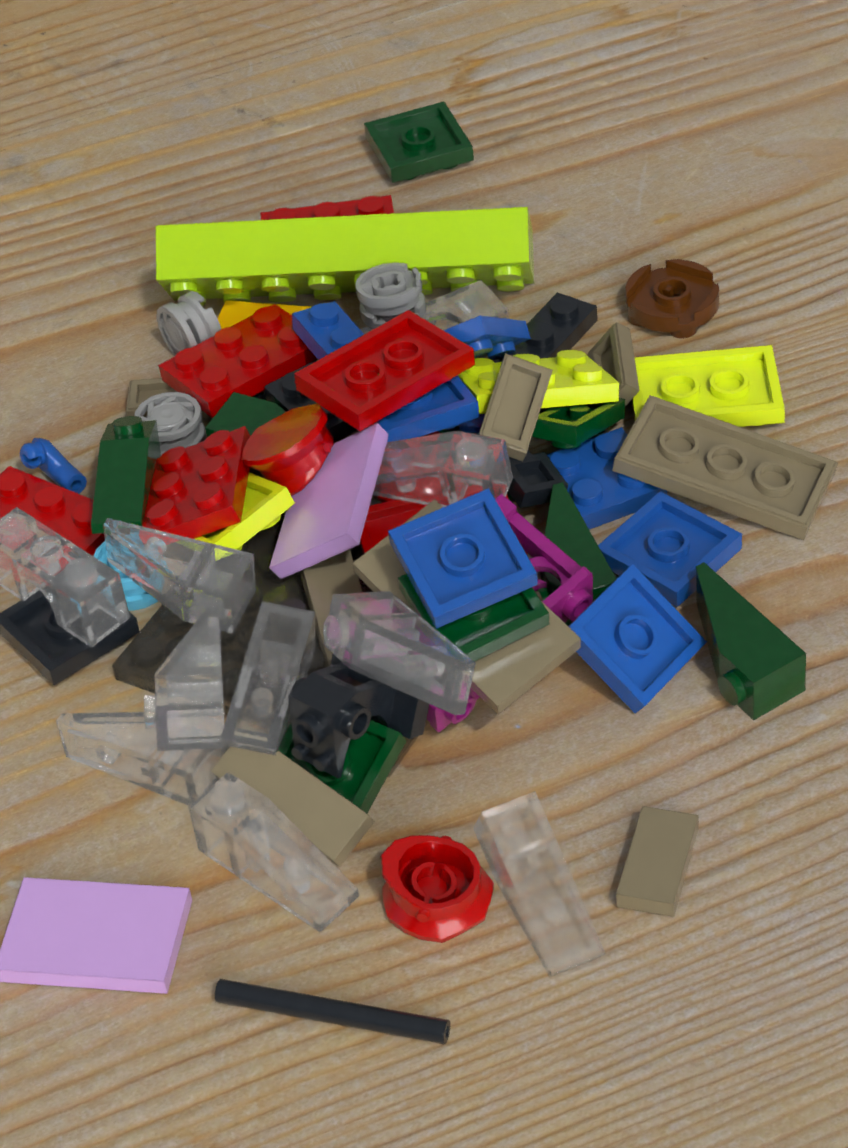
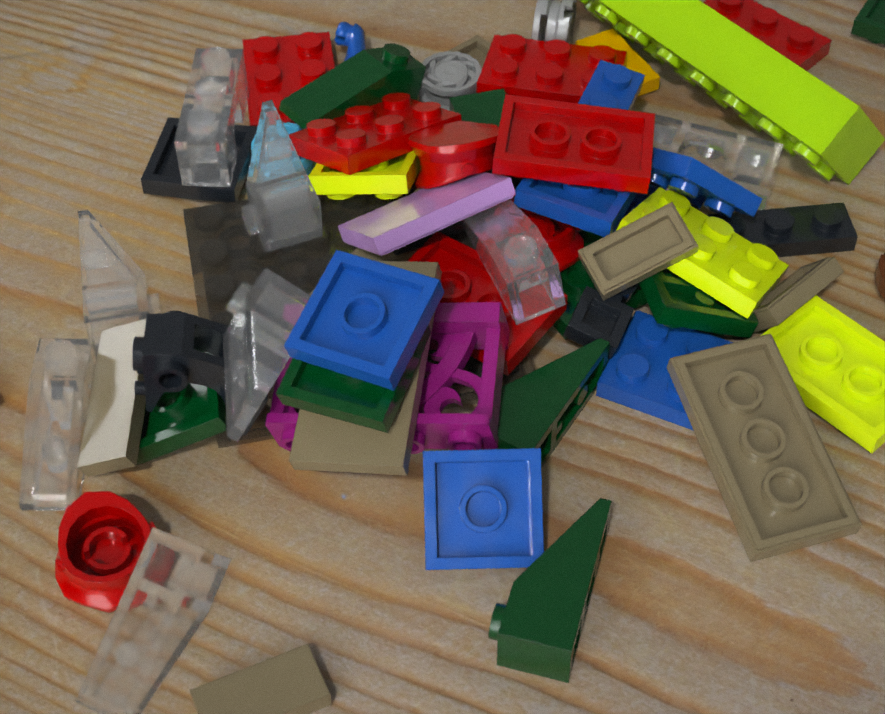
camera: 45 degrees right, 5 degrees up
(190, 691) = (155, 259): clear slope -> none
(273, 663) = (197, 289): clear slope -> none
(388, 292) = (691, 102): light grey wheel -> none
(668, 543) = (630, 462): blue plate -> none

